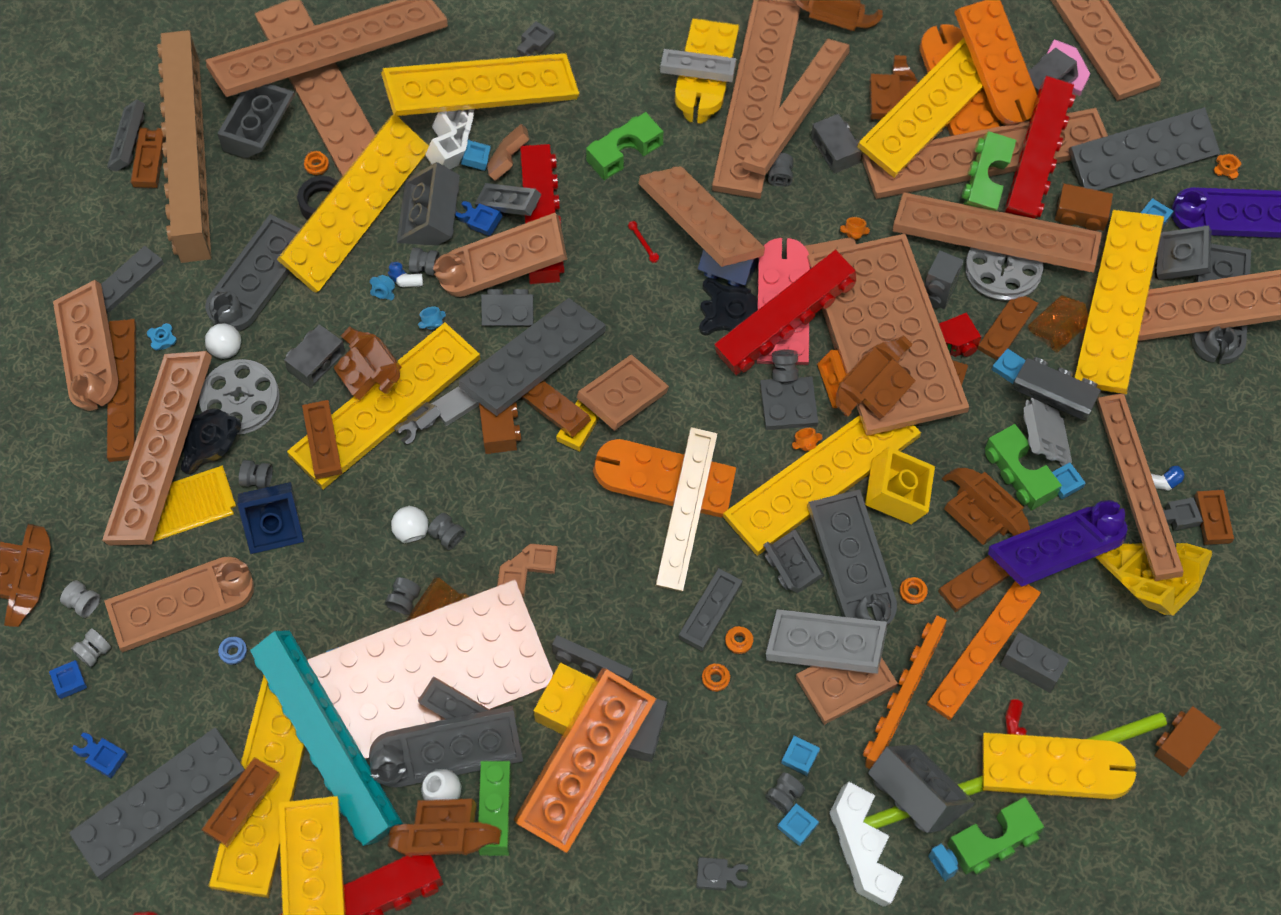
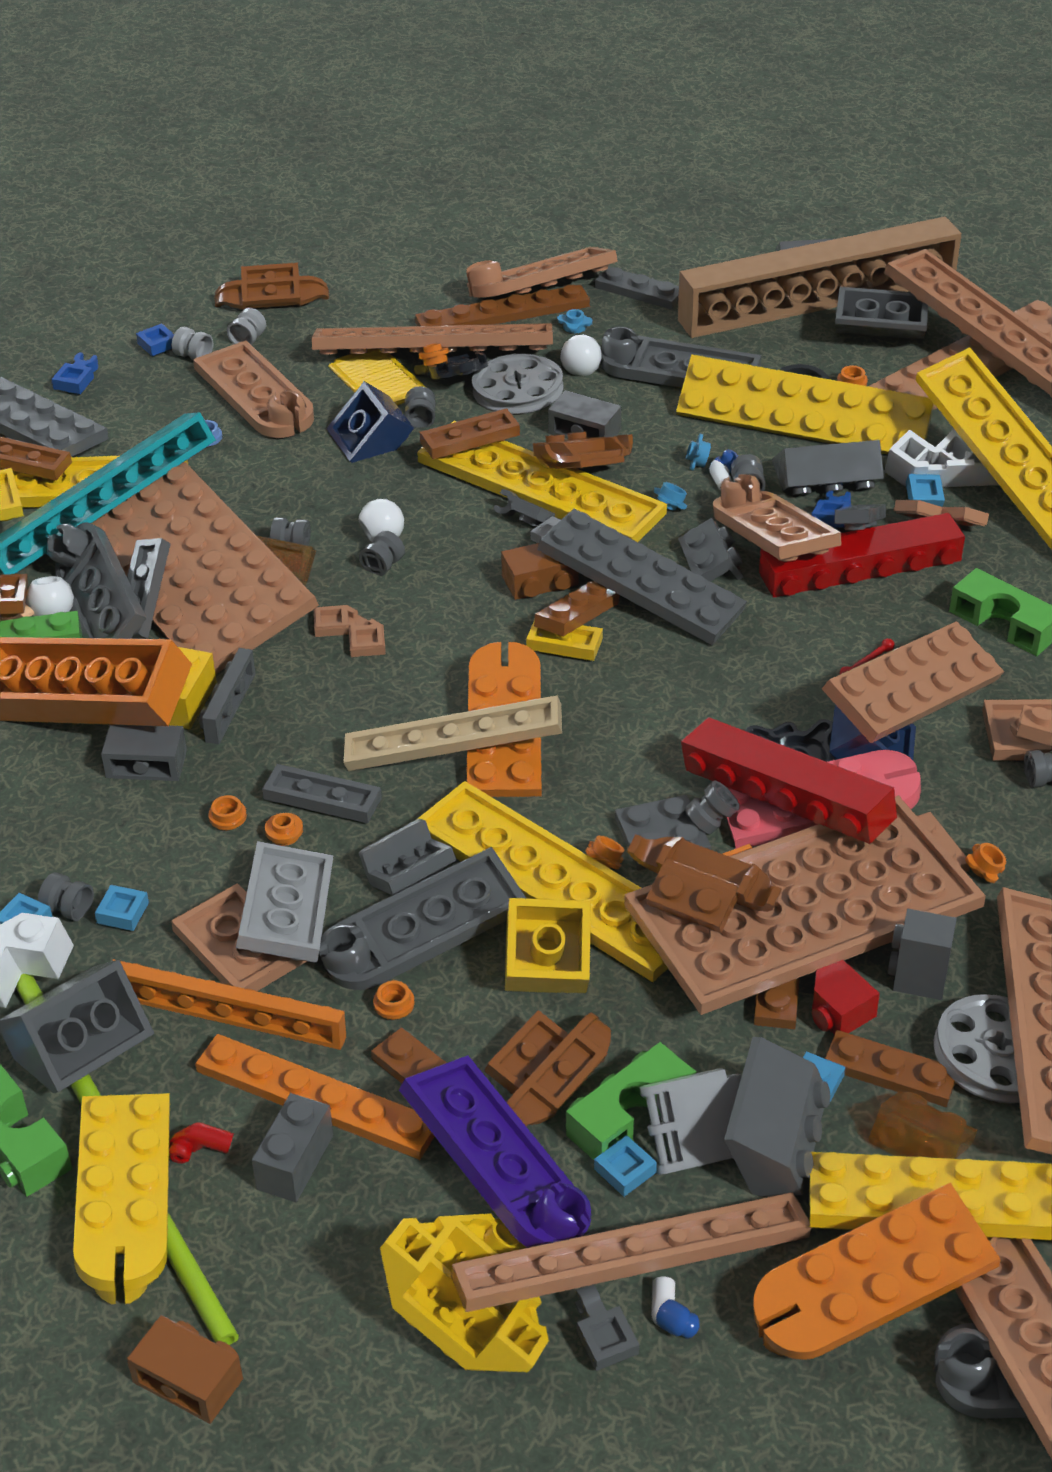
camera: 80 degrees right, 20 degrees down
(193, 449) = (433, 354): none -> orange plate
(622, 392) = (616, 660): nougat plate -> none
(1172, 369) = (871, 1275): none -> orange plate
(1216, 521) = (613, 1385): dark orange plate -> none

